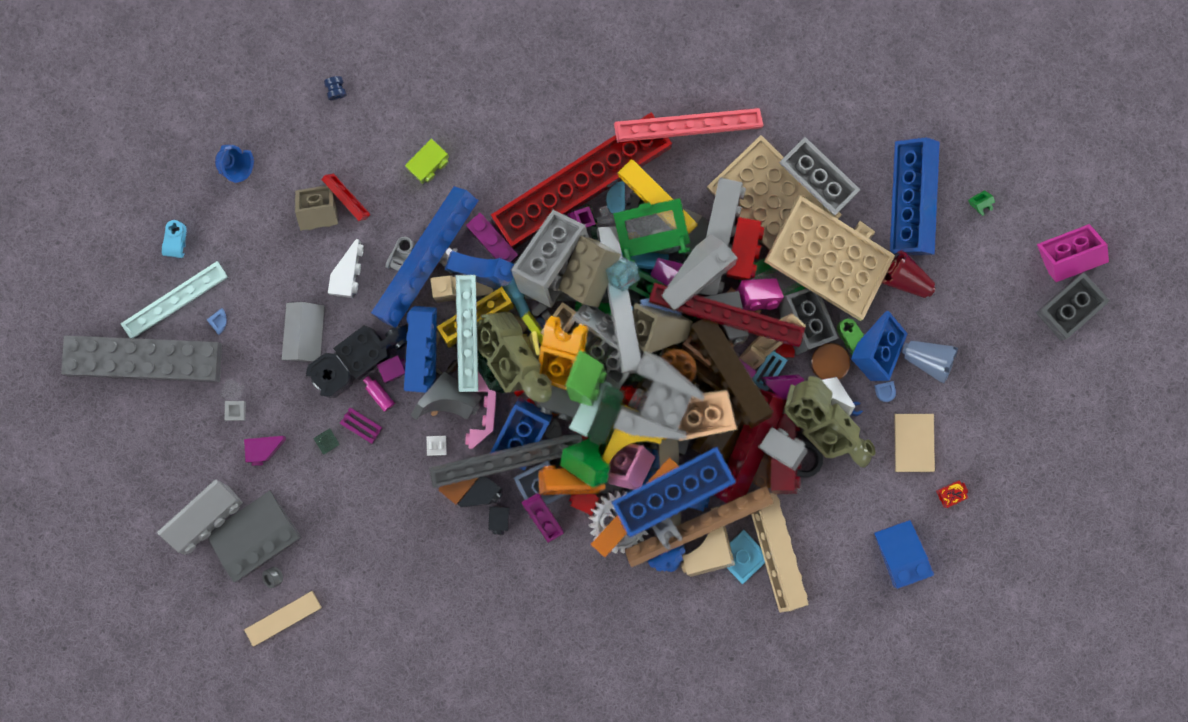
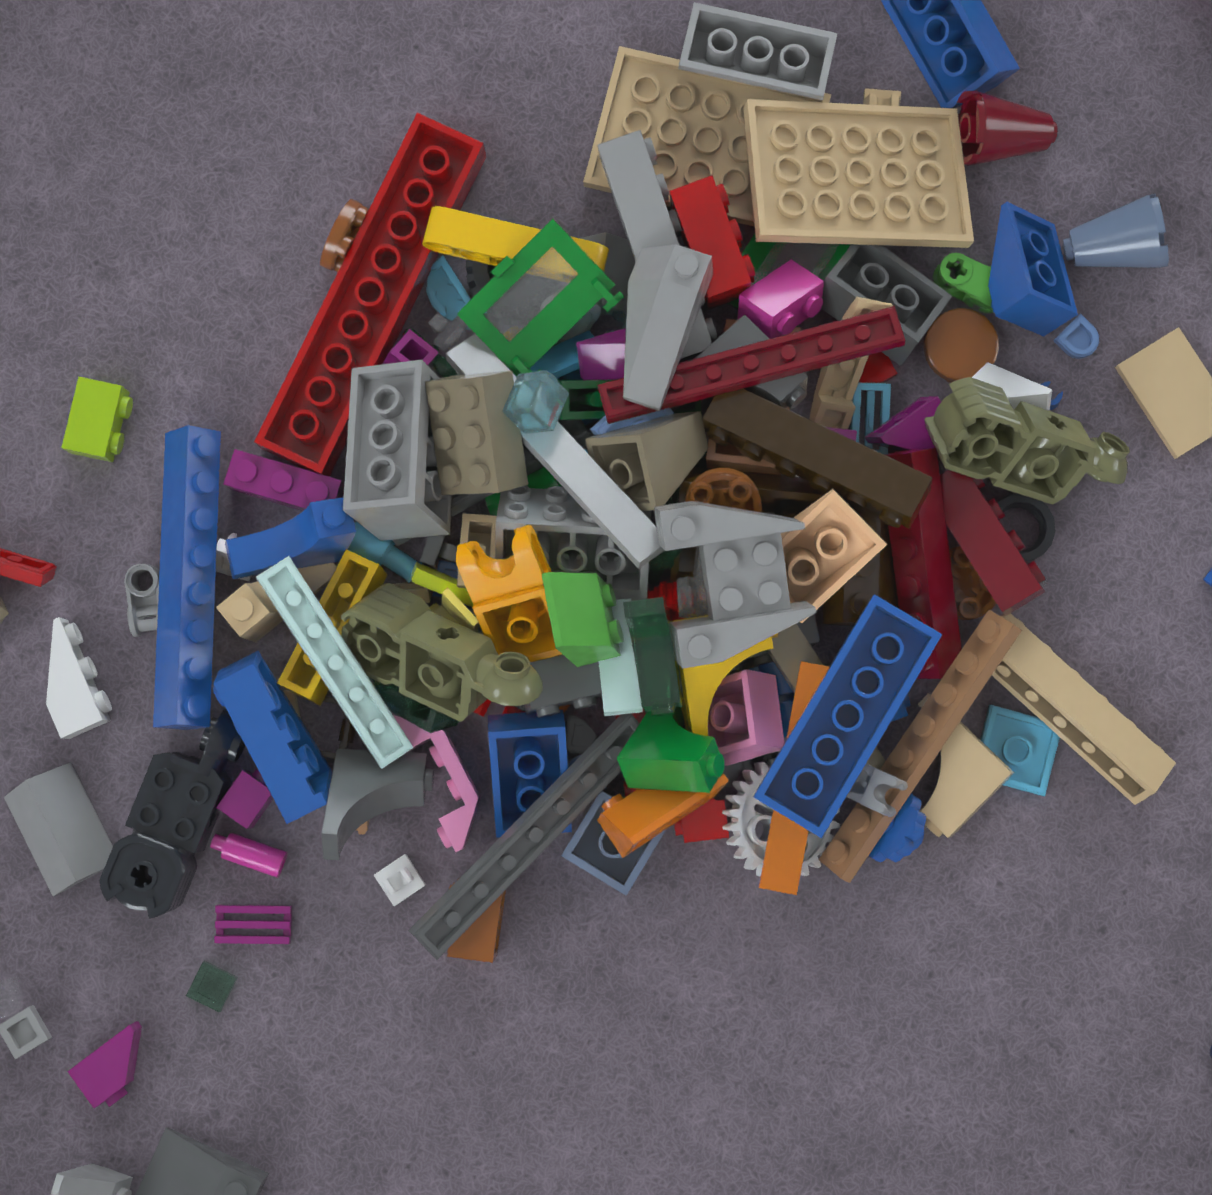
camera: 30 degrees left, 0 degrees up
(482, 493) = (524, 914): black slope -> none
(498, 520) = (579, 940): black brick -> none
(543, 517) = (650, 891): magenta tile -> none
(585, 146) = (342, 234): none -> dark orange tile
(688, 125) = (489, 99): coral tile -> none
(783, 448) = (981, 529): light grey brick -> none

